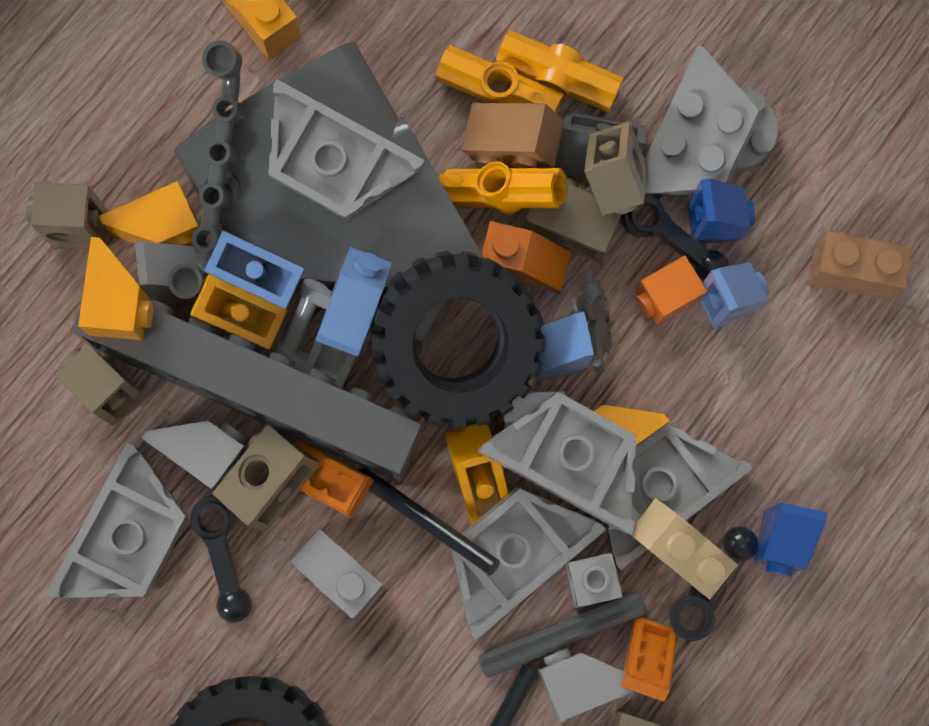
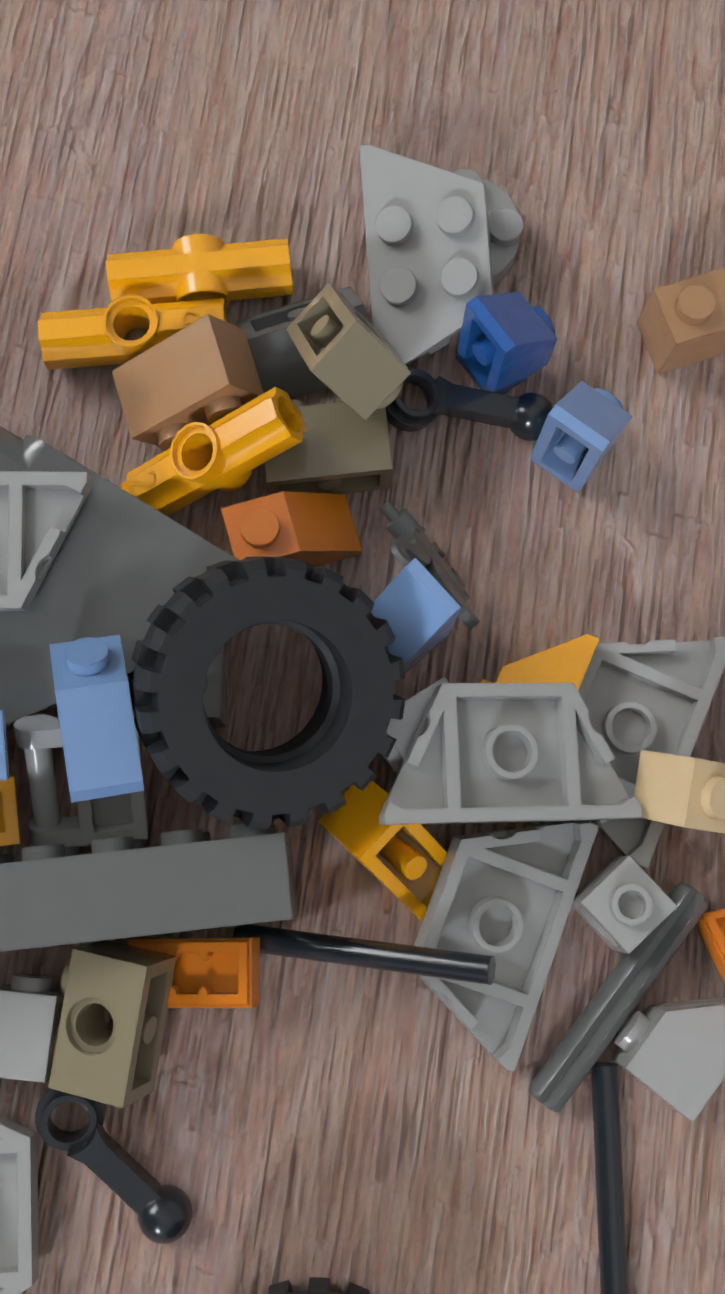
camera: 30 degrees left, 0 degrees up
(337, 574) = (282, 1094): light grey slope -> none
(669, 291) = (499, 473): orange brick -> none

